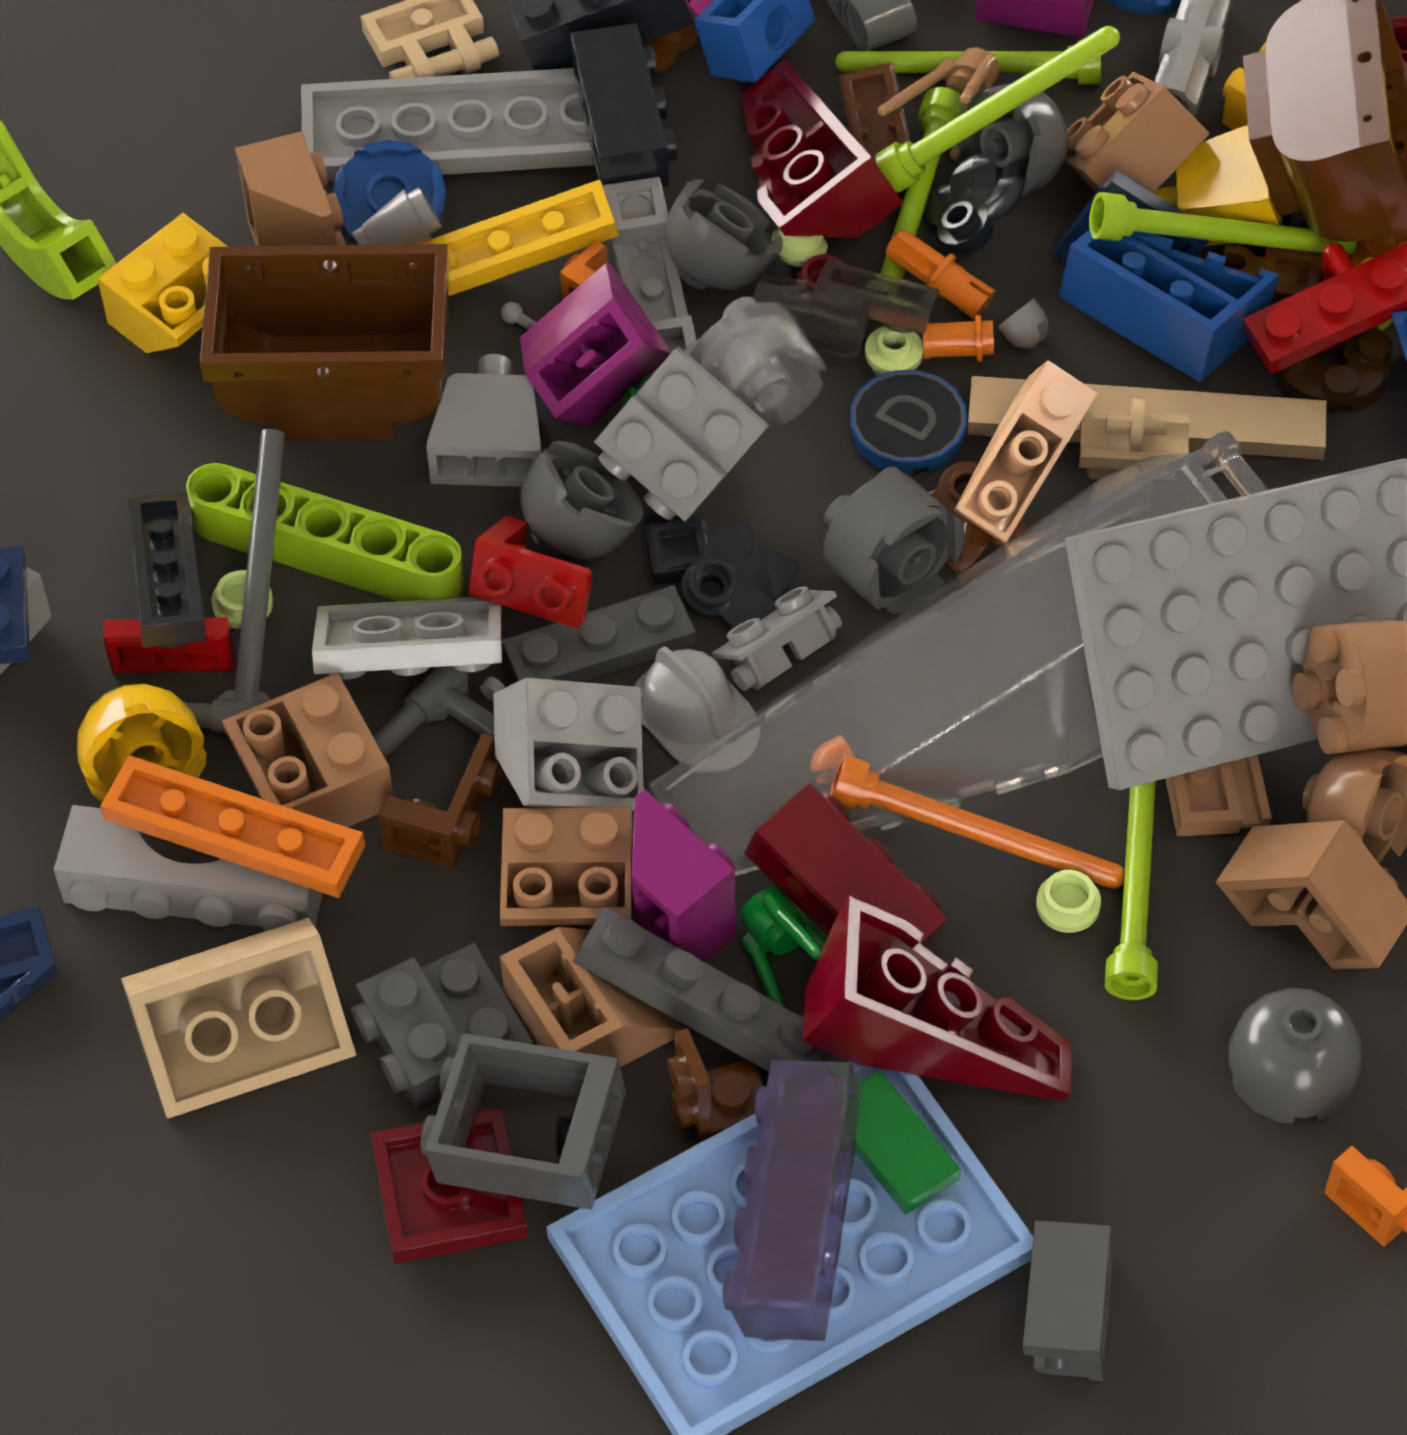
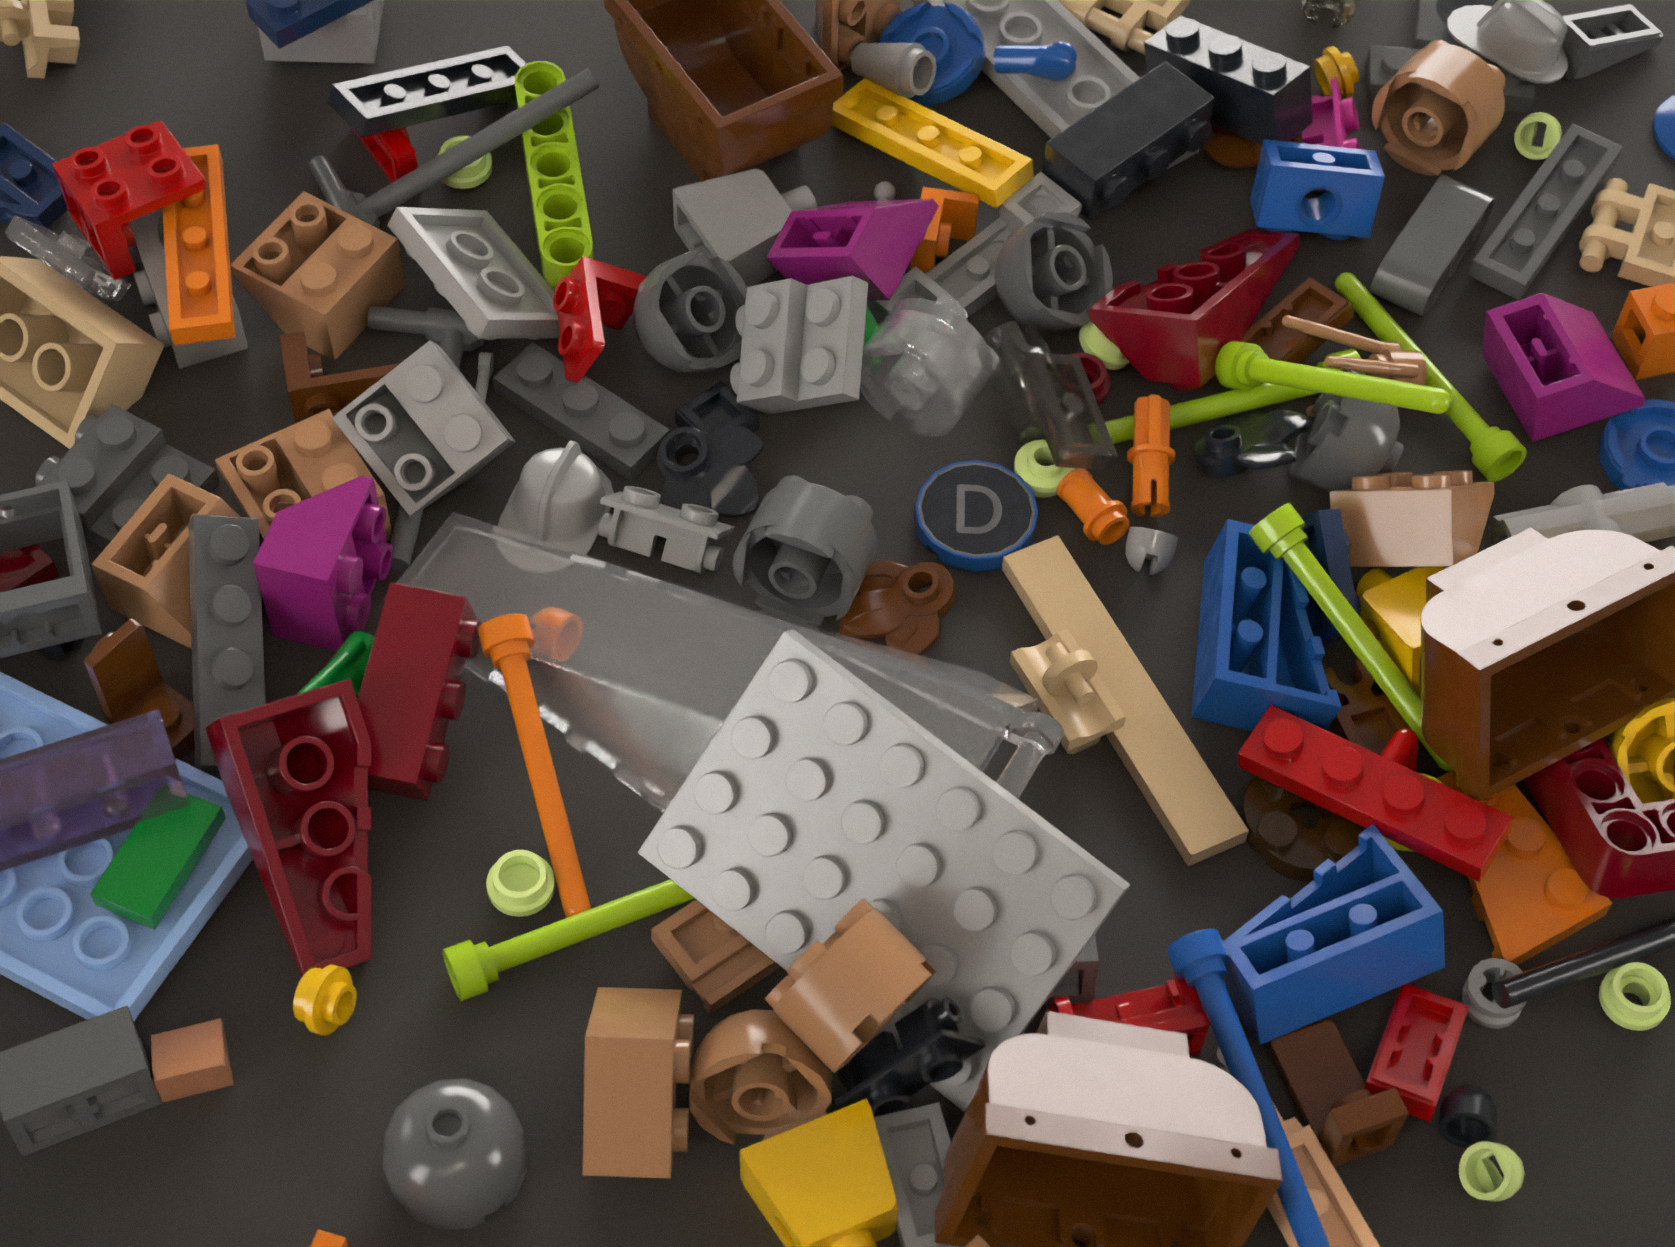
camera: 55 degrees right, 0 degrees up
(126, 856) = (122, 182): none -> red bracket
(126, 957) = (68, 257): none -> clear plate
(141, 724) = (265, 159): yellow cylinder -> none
(483, 116) = (1049, 62): none -> blue arm
(1024, 449) = (976, 602): light nougat slope -> none
(1093, 1200) = (190, 1060): none -> nougat slope
(1101, 1084) = (325, 999): none -> yellow plate

